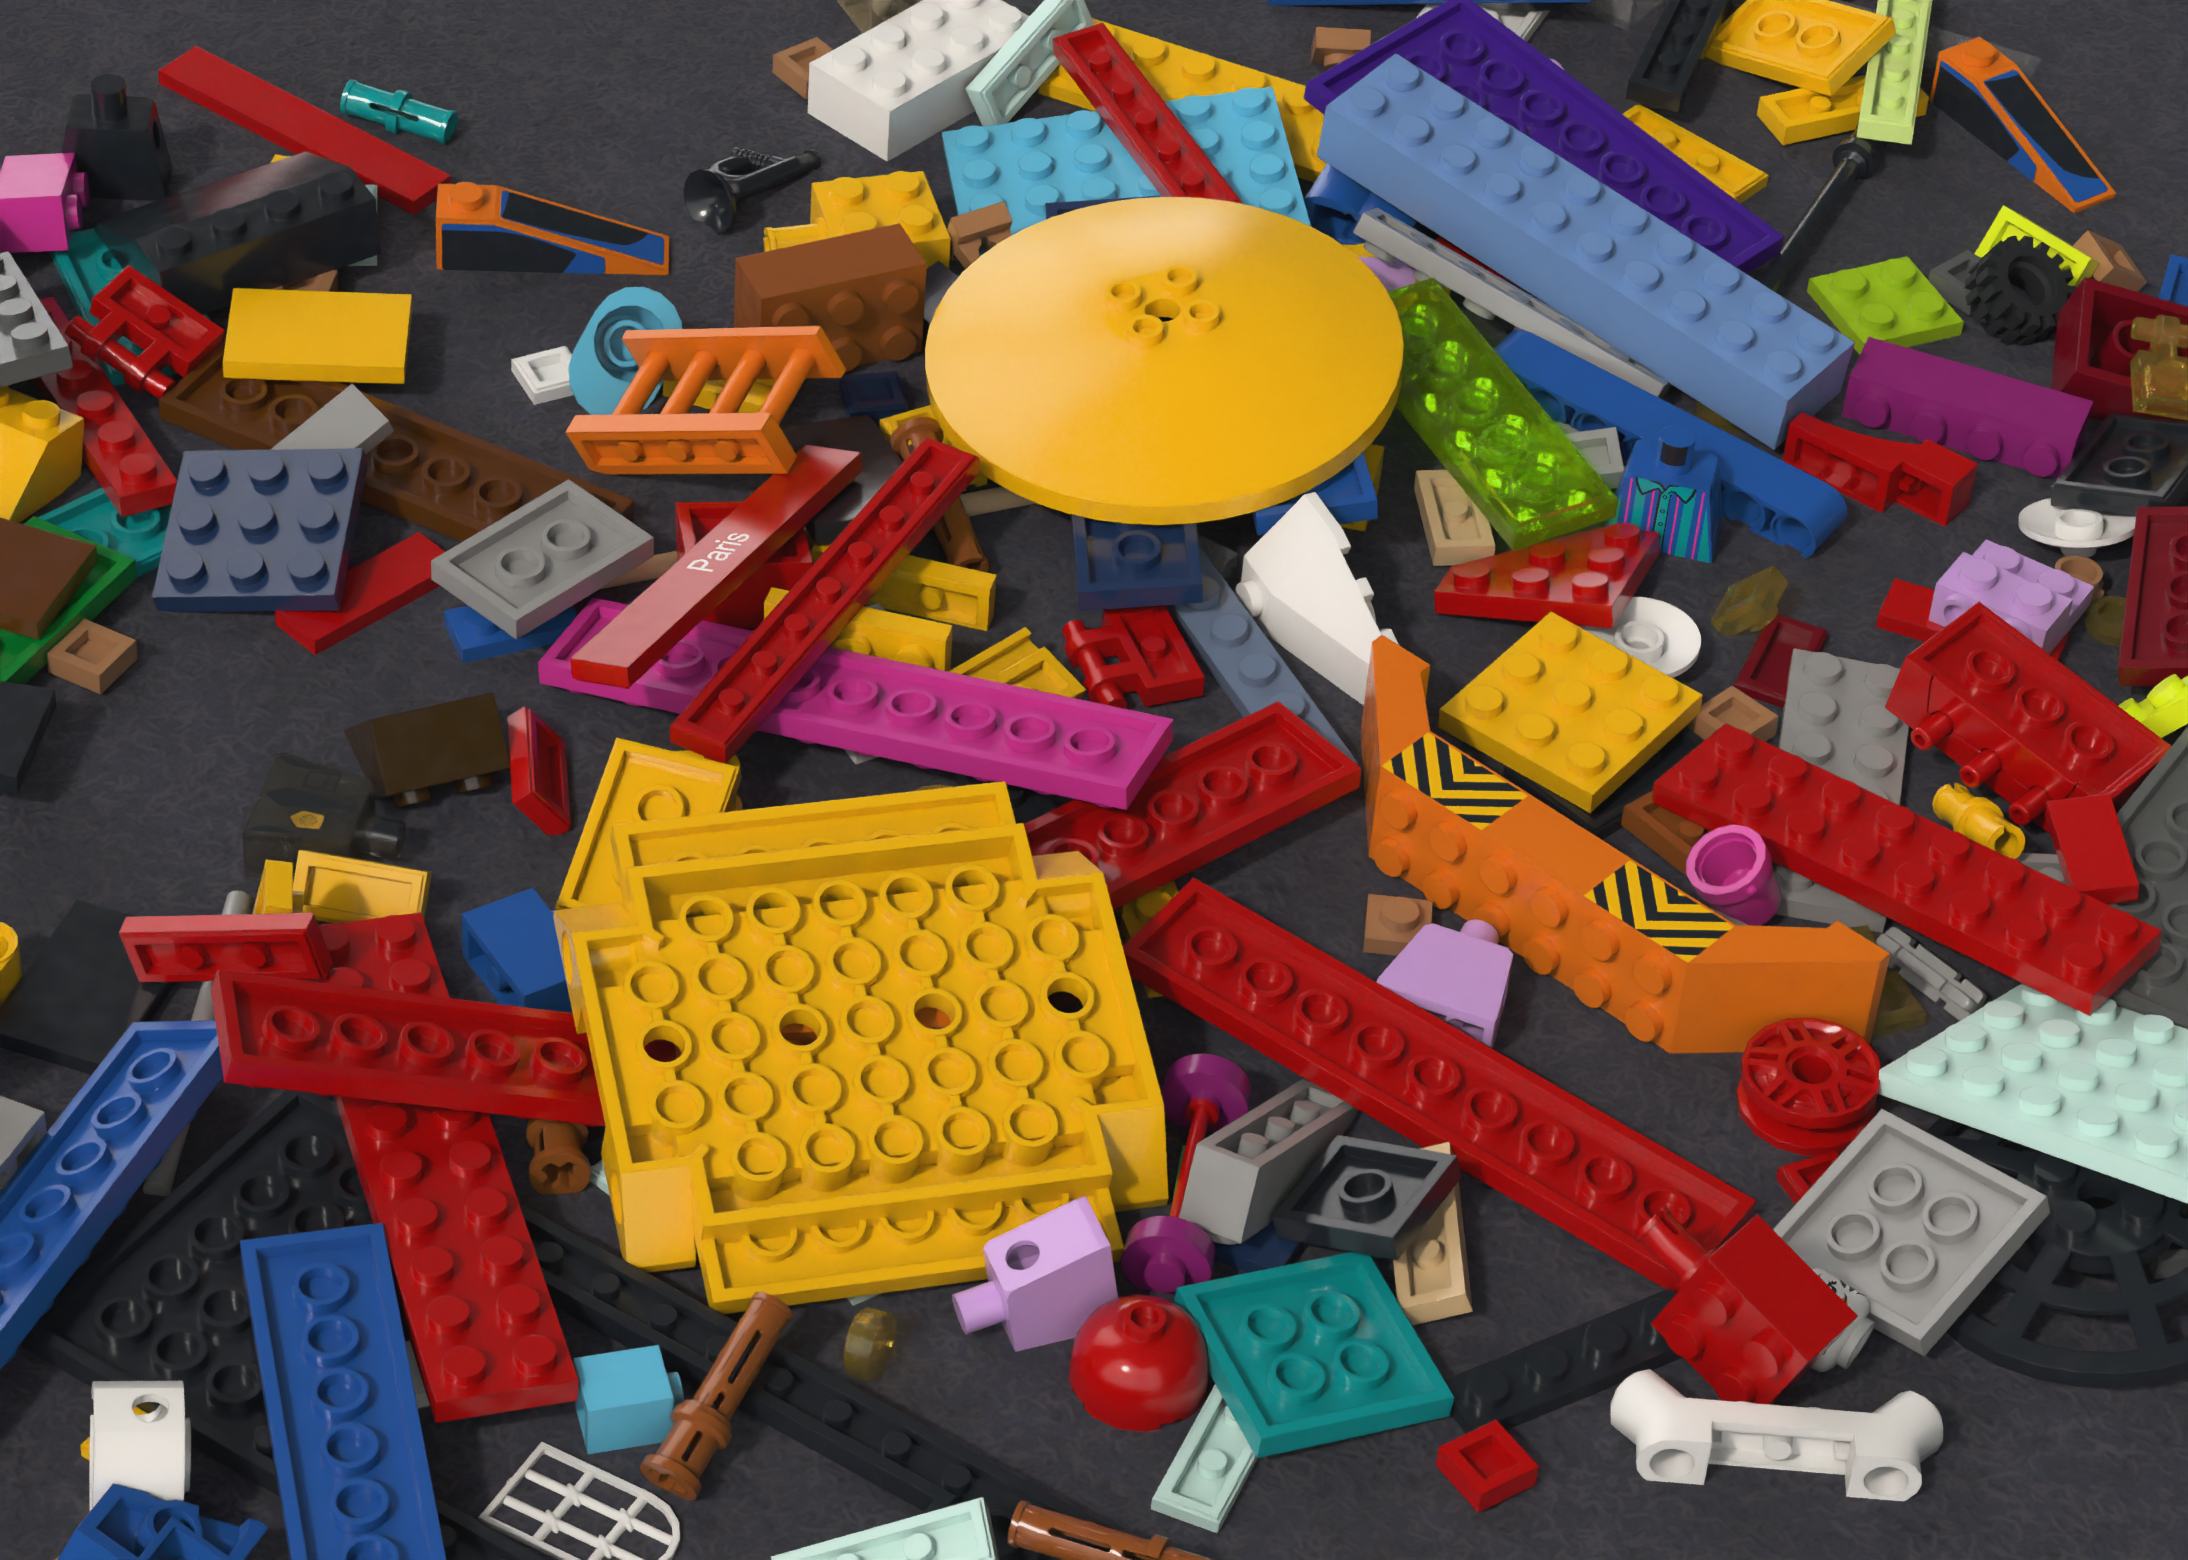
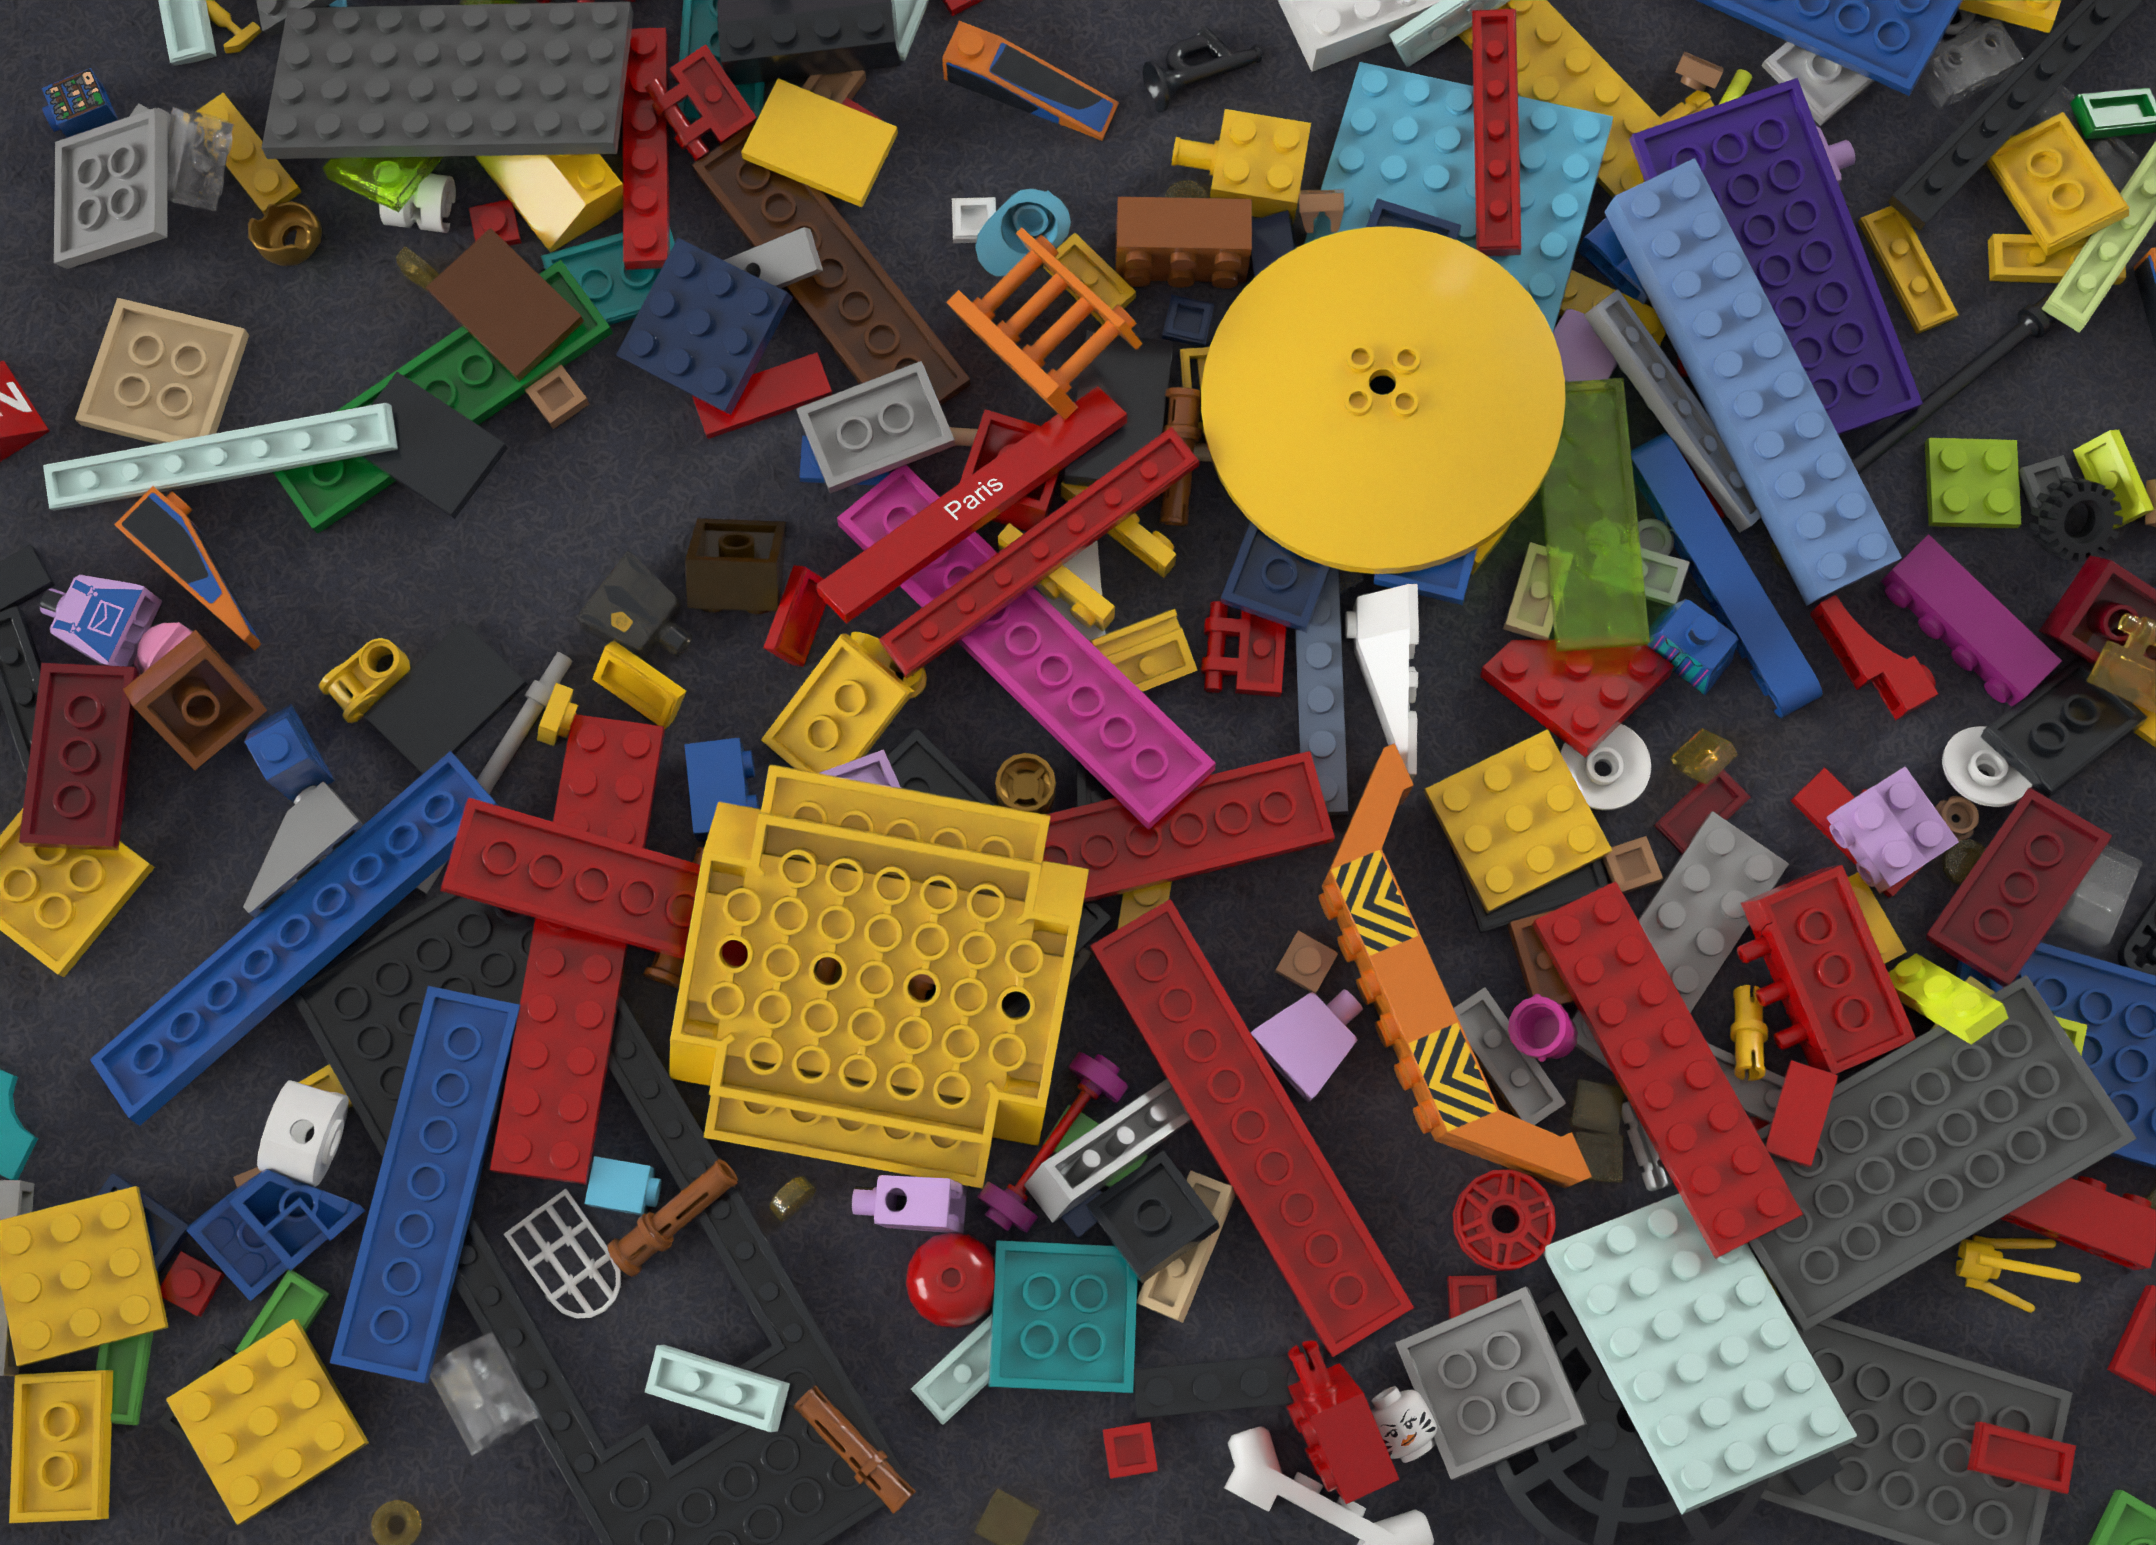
camera: 25 degrees right, 35 degrees up
(199, 945) = (517, 729): red tile -> none

